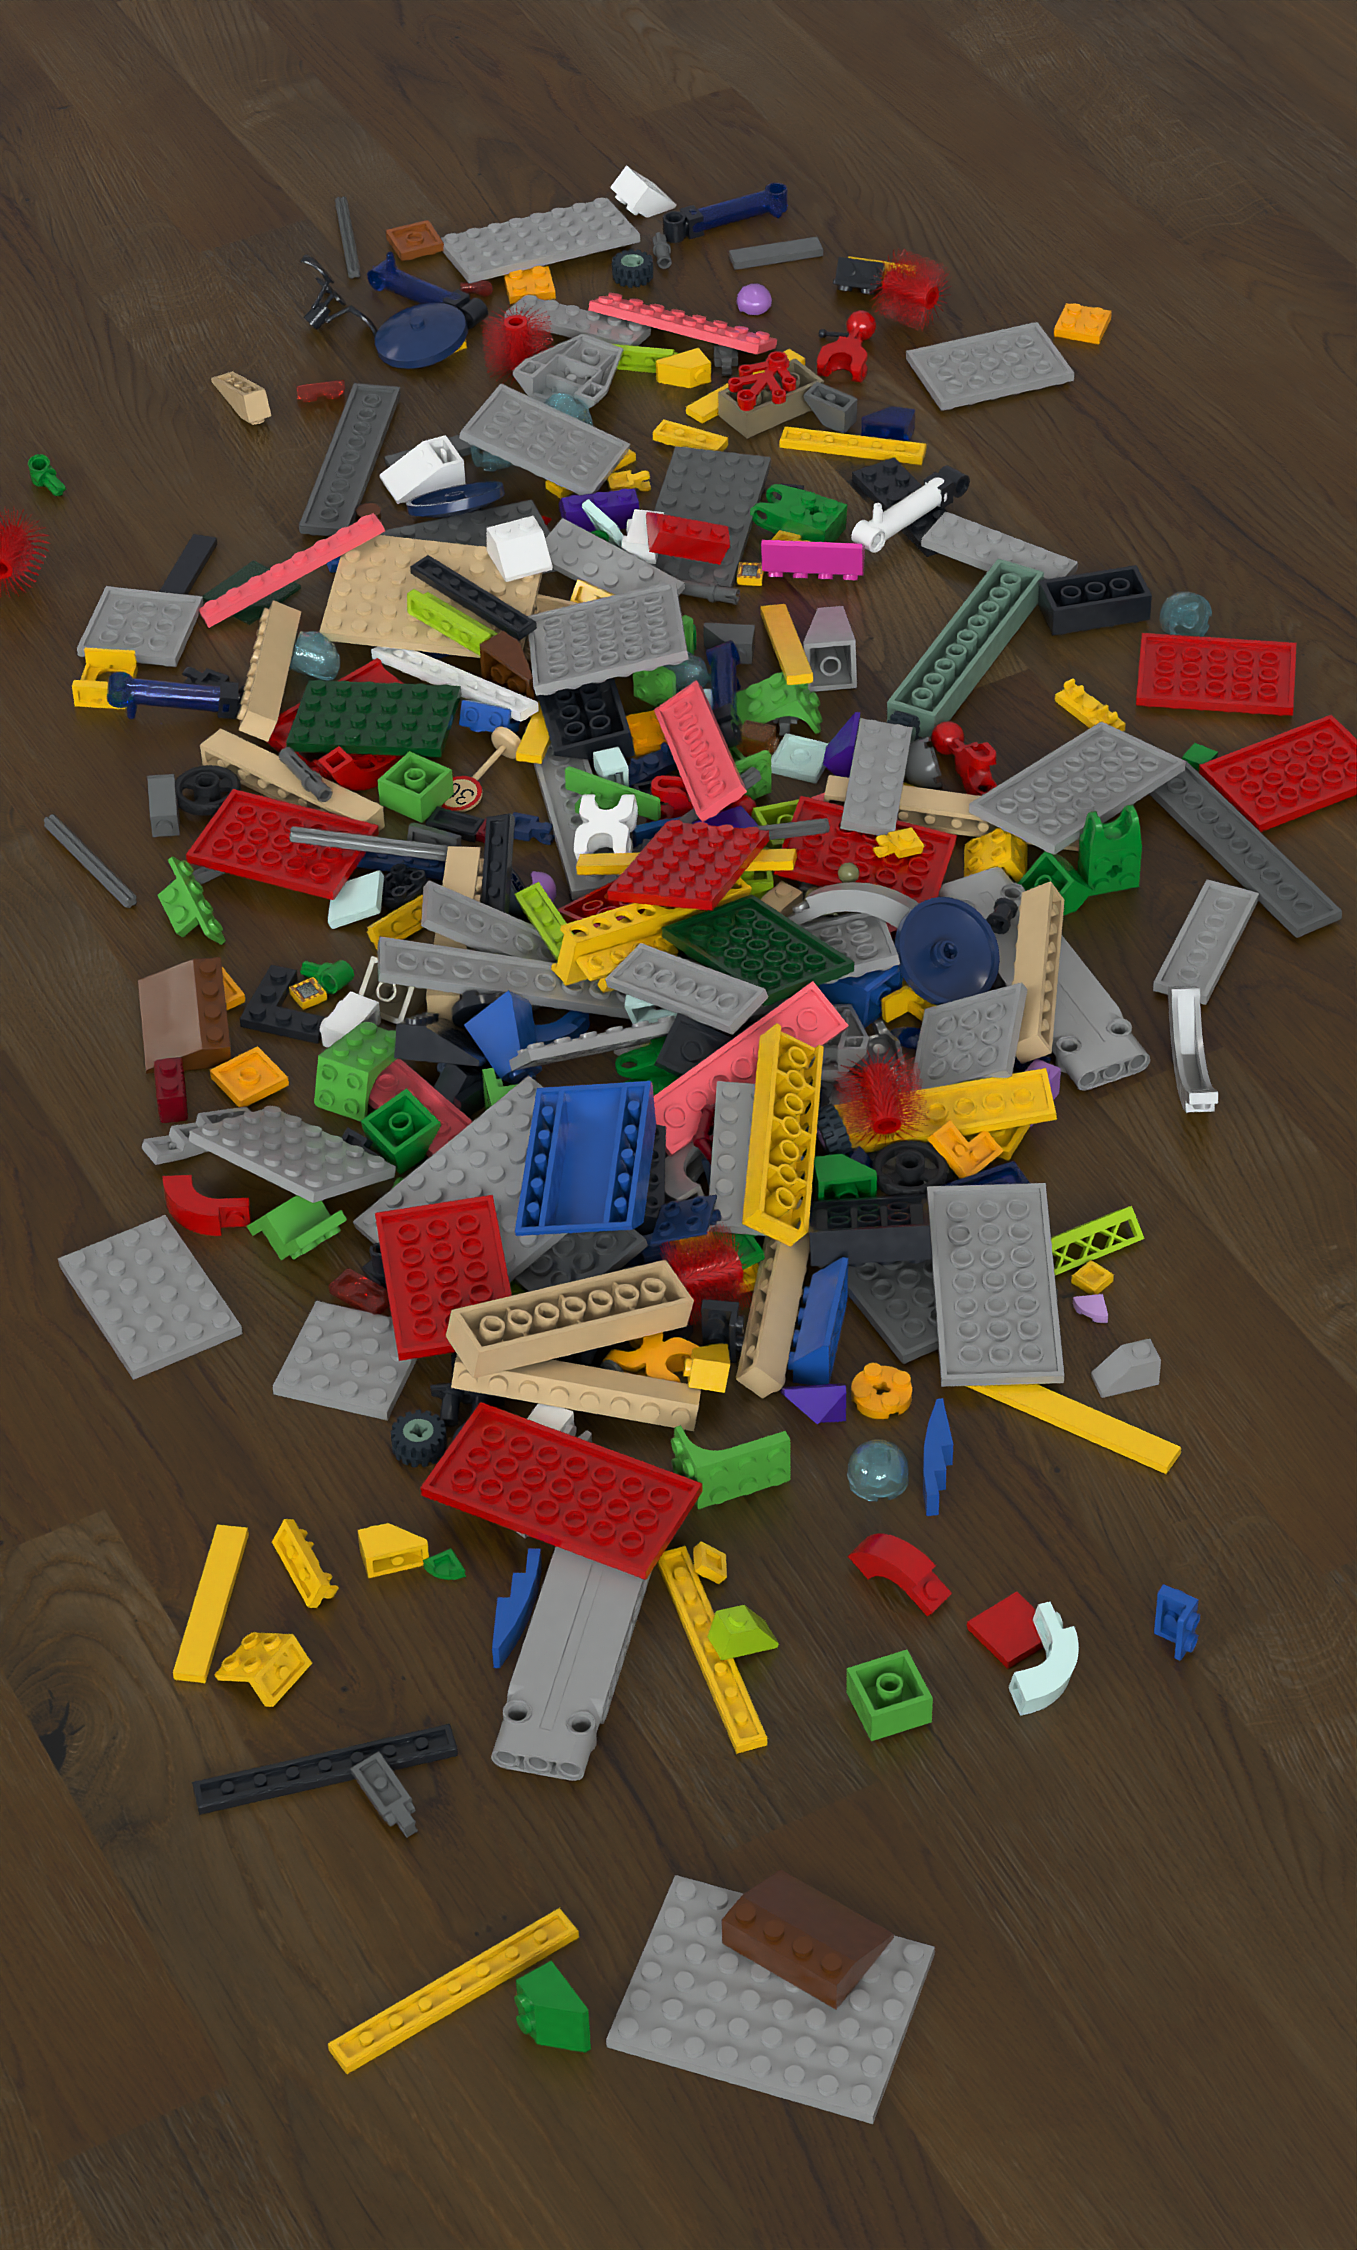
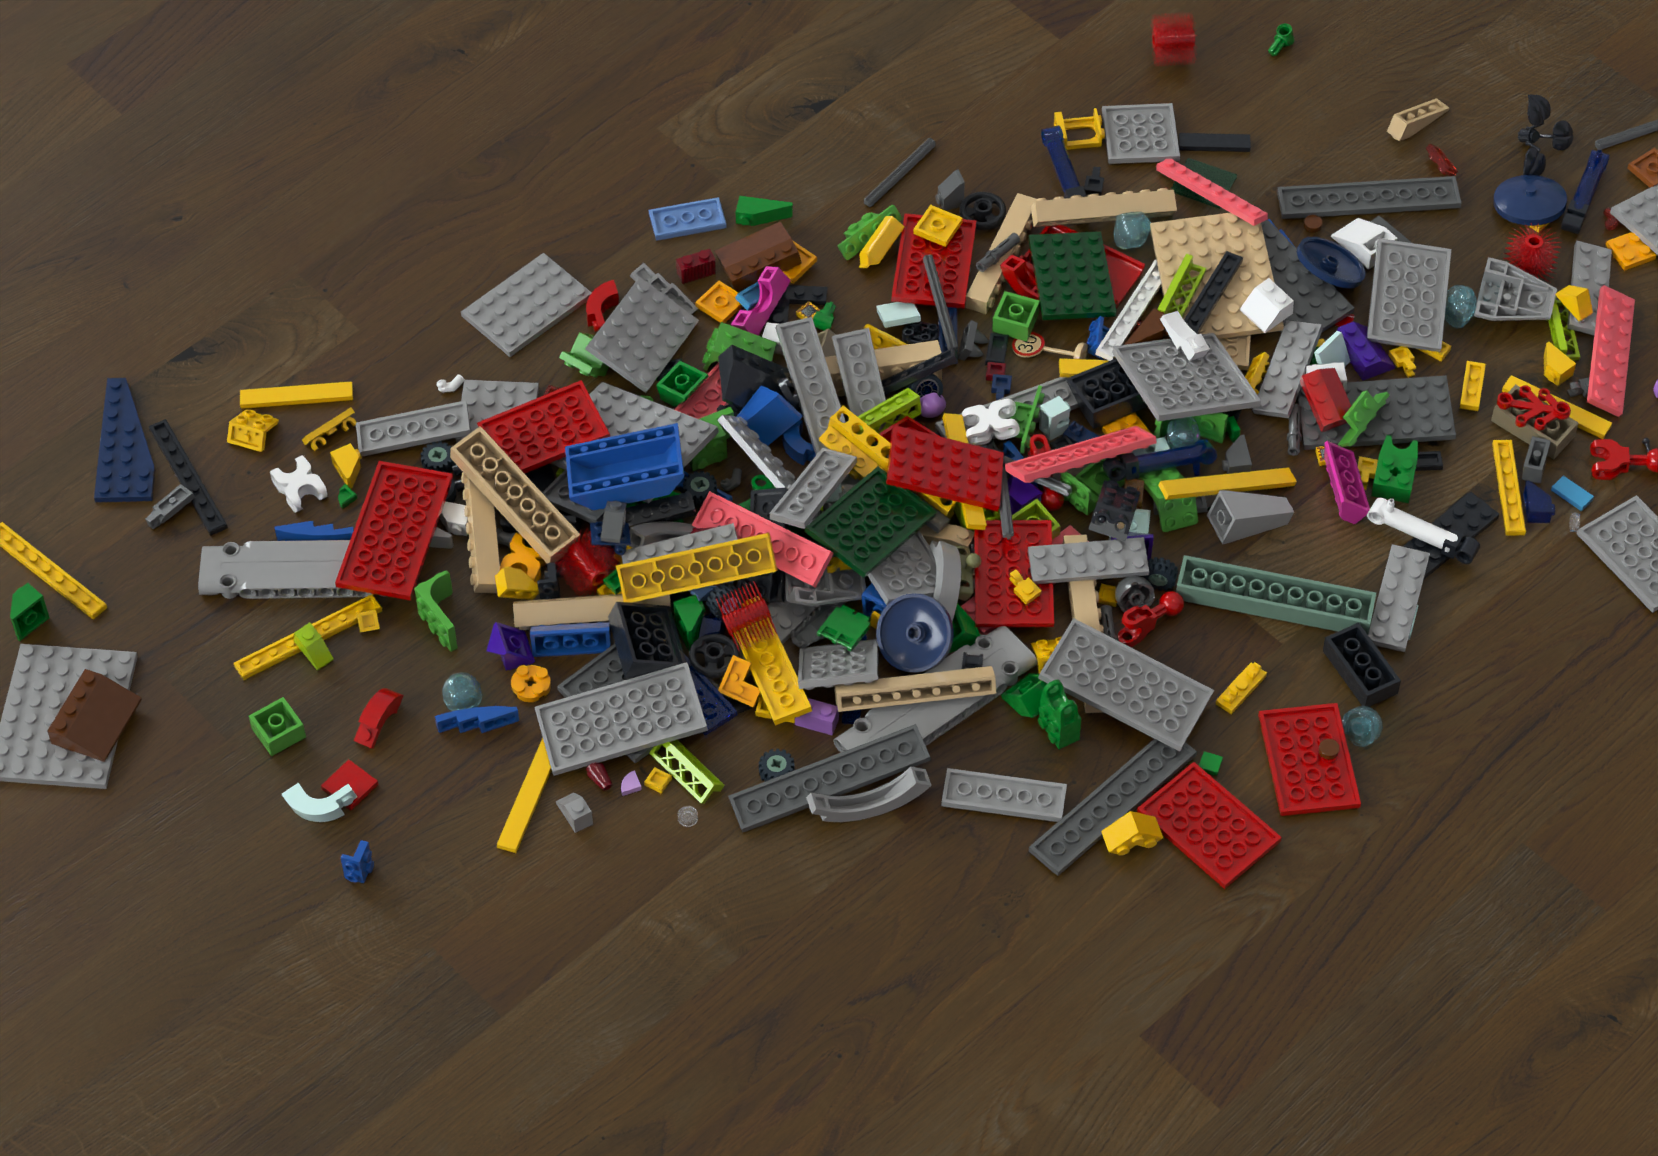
camera: 75 degrees right, 10 degrees up
(65, 1093) = (687, 218): none -> medium blue tile
(92, 1013) = (759, 211): none -> green slope
(225, 890) = (880, 242): none -> yellow piece
(232, 819) = (938, 225): none -> yellow plate
(256, 1037) = (749, 297): none -> dark azure tile
(257, 1853) = (124, 458): none -> dark blue wing
(275, 1405) = (450, 386): none -> white arm
(281, 1020) = (772, 286): none -> dark pink arch
(352, 1454) = (413, 428): none -> light grey plate
(403, 1617) = (298, 483): none -> white piece
(543, 625) = (1184, 337): none -> white slope
(606, 322) = (1576, 300): none -> yellow slope
(678, 1198) = (613, 521): none -> dark grey slope
(711, 509) = (1360, 414): none -> bright green bracket
(807, 734) = (1114, 510): none -> black piece
(881, 399) = (1572, 493): none -> dark azure tile
(905, 1027) = (845, 627): none -> green plate
(927, 404) = (1574, 522): none -> clear tile
(1076, 1335) = (599, 775): none -> dark red cone
(1106, 1149) = (768, 764): none -> black wheel
(1151, 1090) = (829, 777): none -> dark grey plate
(1162, 1255) = (687, 816): none -> clear tile
(1213, 648) = (1329, 749): none -> reddish brown tile
(1304, 832) = (1131, 831): none -> yellow brick

